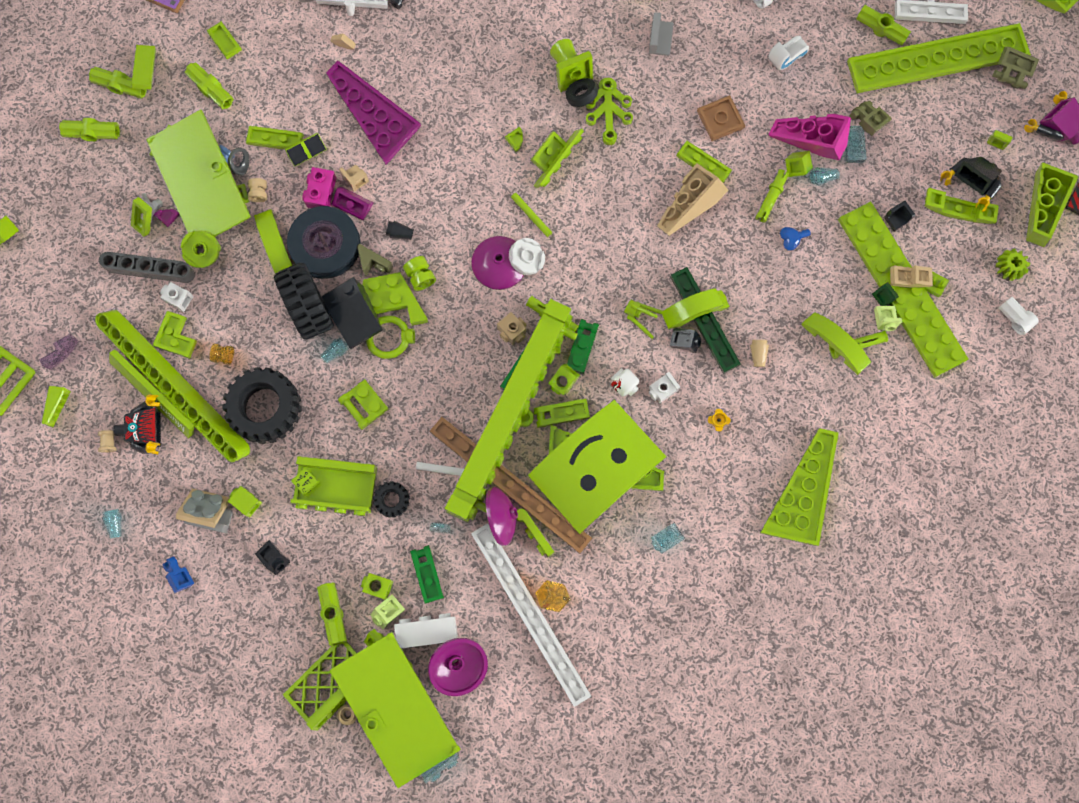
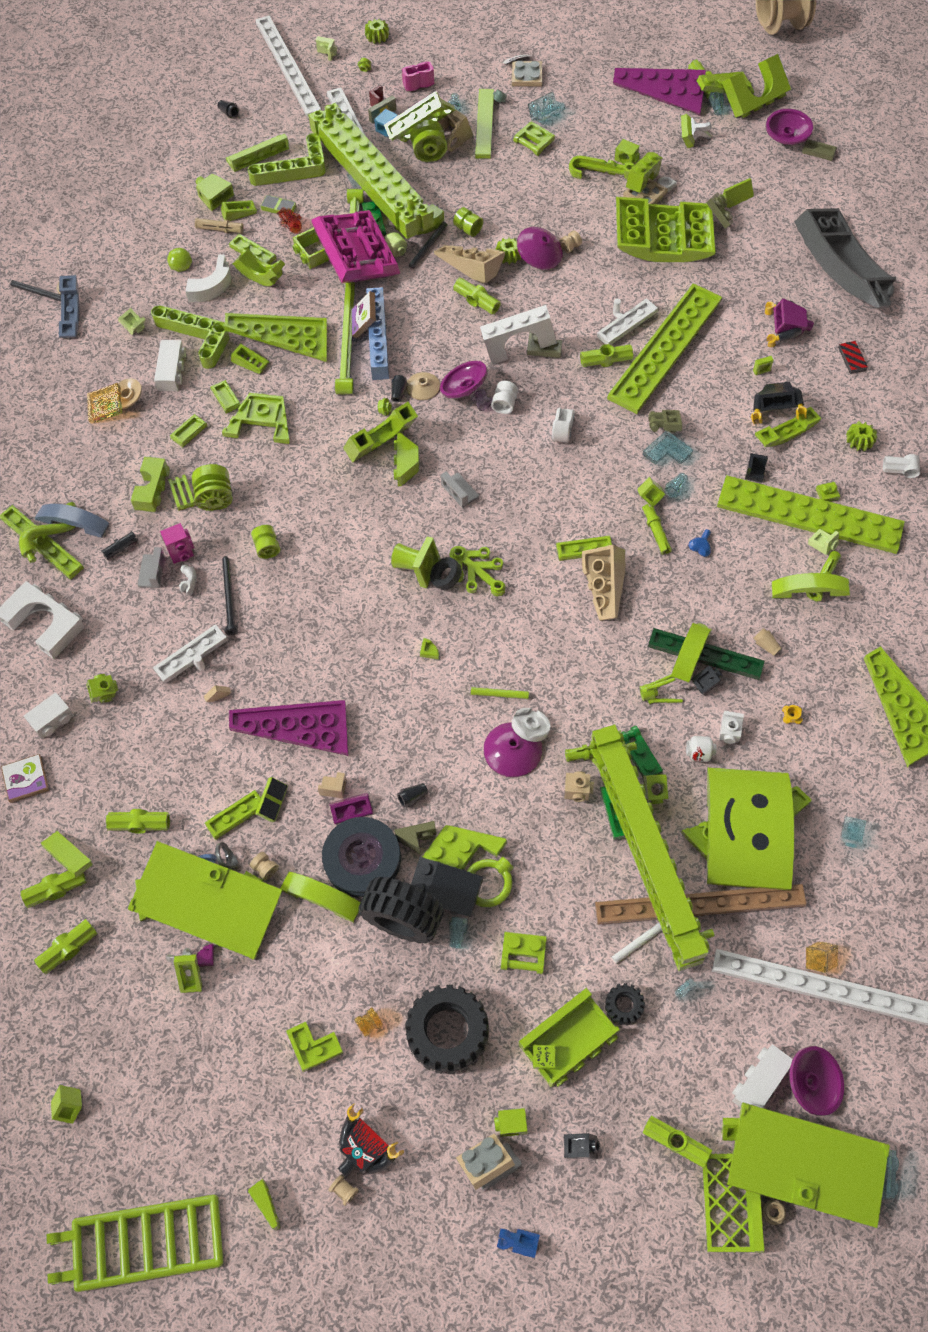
camera: 40 degrees left, 15 degrees down
(63, 350) = (224, 1148): clear purple slope -> none
(113, 522) = (419, 1254): clear light blue cone -> none
(139, 263) = (221, 1011): dark grey beam -> none
(147, 388) = (337, 1111): lime tile -> none
(172, 385) = (343, 1092): lime beam -> none
(180, 300) = (286, 1017): white brick -> none
(189, 249) = (272, 963): lime plate -> none
(224, 40) = (113, 776): lime tile -> none
(319, 188) = (315, 818): dark pink brick -> none
(383, 592) = (691, 1074): lime brick -> none
(387, 612) = (716, 1097): yellowish green bracket -> none
(419, 273) = (463, 810): lime wheel -> none
(427, 575) = (714, 1035): green plate -> none
(501, 516) = (727, 925): magenta dish -> none
(533, 532) = (757, 922): lime plate -> none
(552, 153) = (471, 636): lime bracket -> none
(562, 413) = (680, 813): lime plate -> none
(720, 118) = (562, 508): medium nougat tile -> none
(820, 135) = (646, 459): dark pink wedge -> none
(885, 295) = (805, 527): dark green tile -> none
(911, 277) = (809, 499): tan slope -> none
(1018, 62) = (720, 307): olive plate -> none
(1049, 199) = (839, 378): lime wedge -> none

